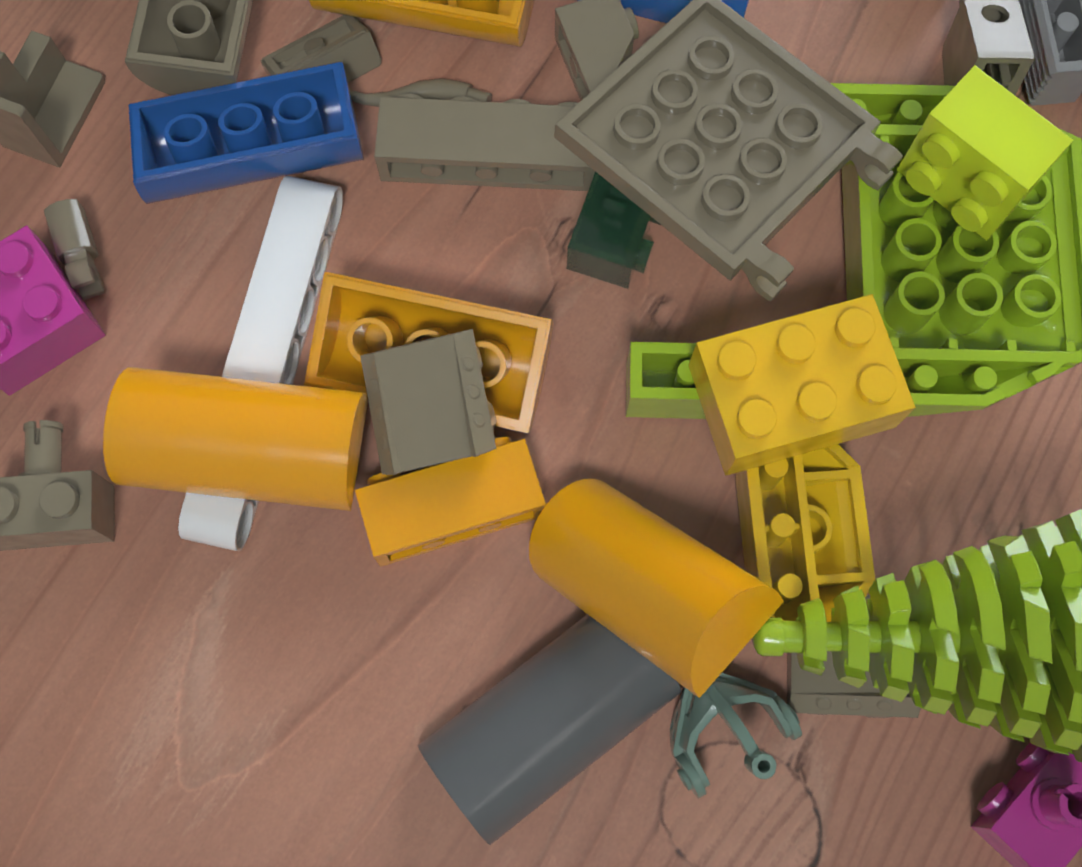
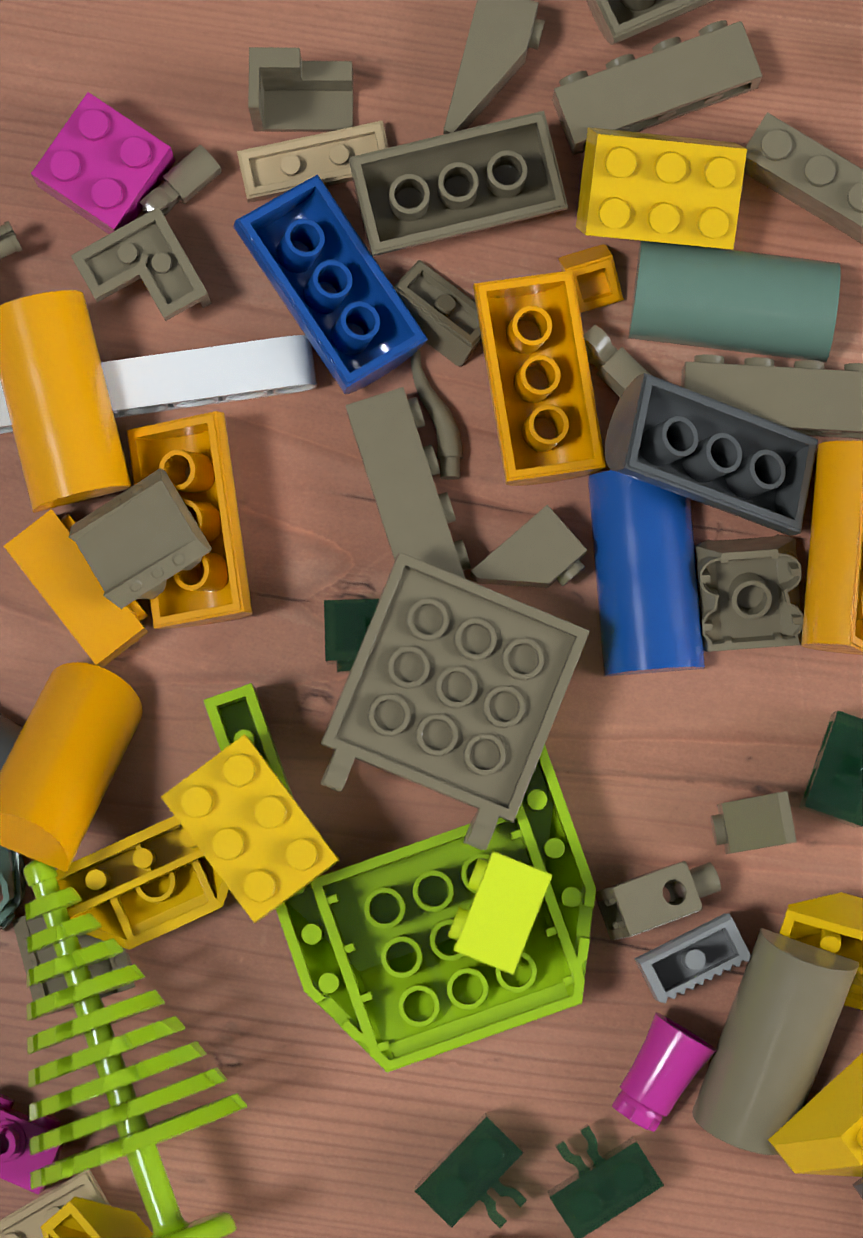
camera: 70 degrees right, 10 degrees up
(105, 147) = (284, 165): none -> tan tile
(125, 291) = (146, 252): none -> dark tan panel

